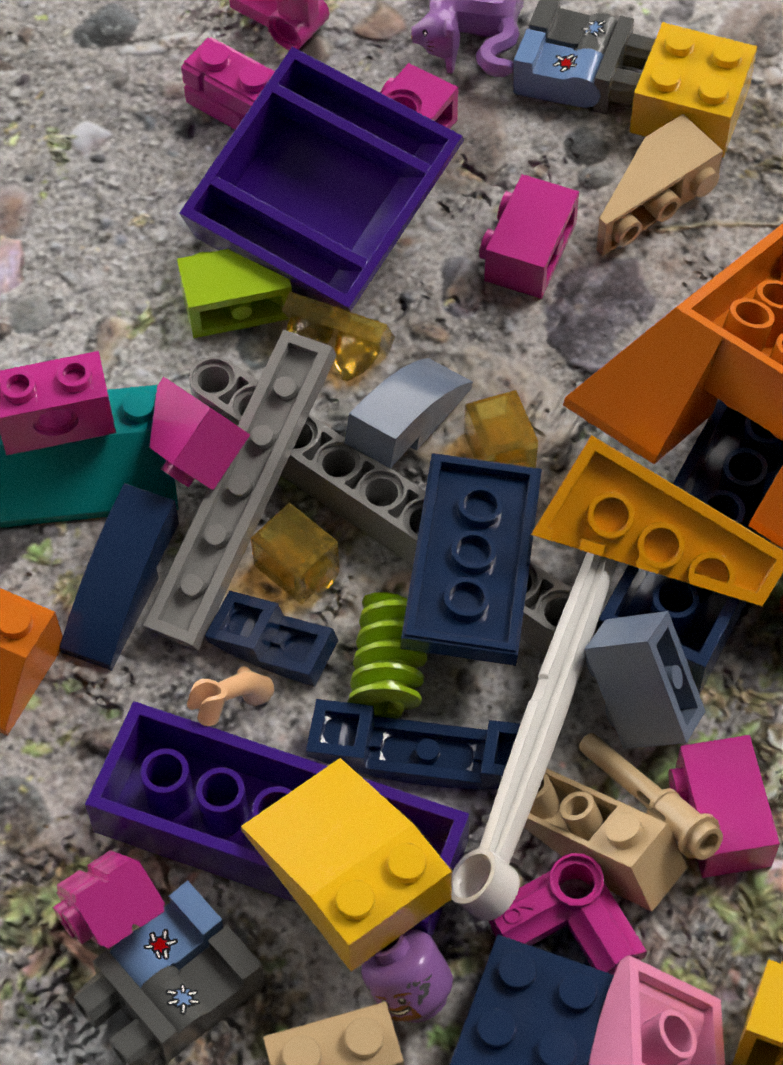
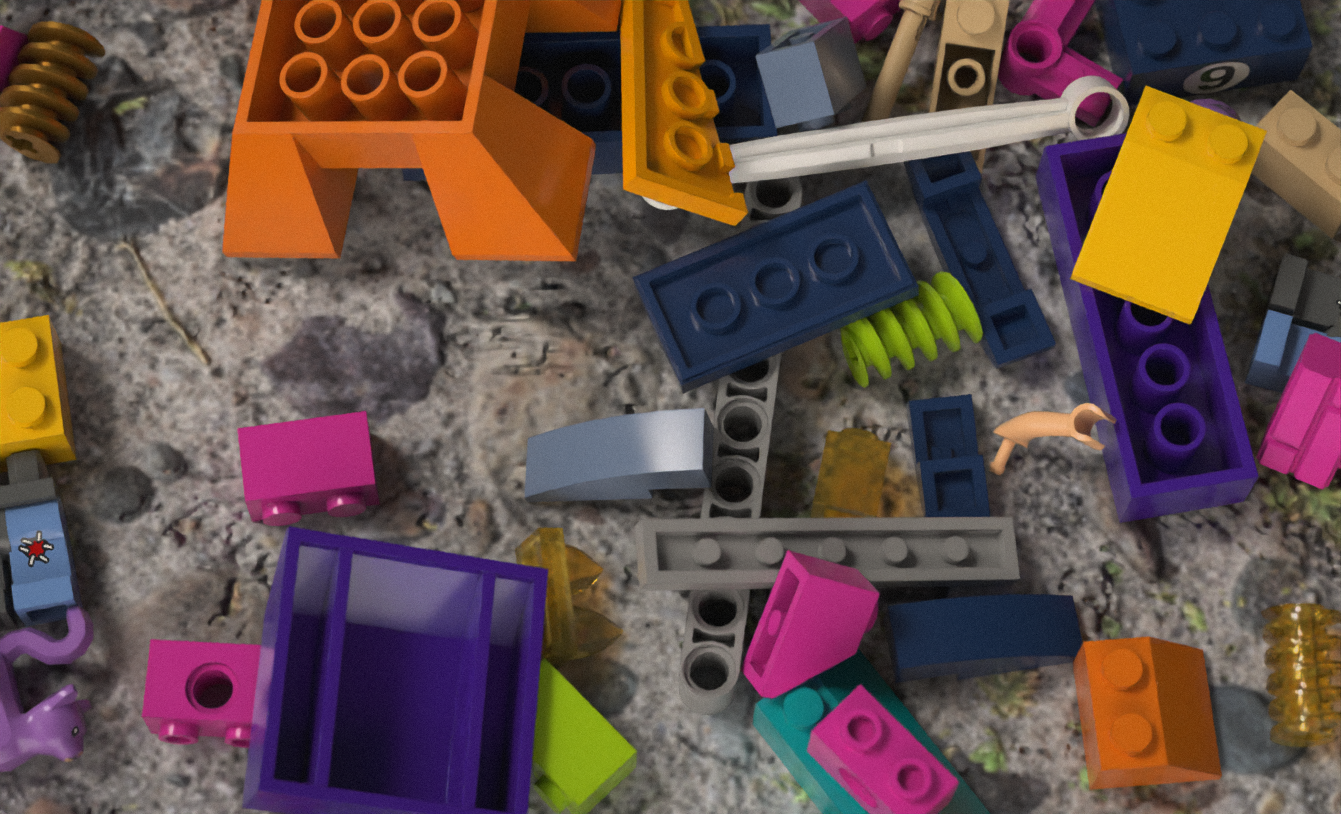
camera: 125 degrees left, 10 degrees up
(500, 430) = (593, 361): clear yellow brick -> none
(663, 175) = (149, 376): tan slope -> none

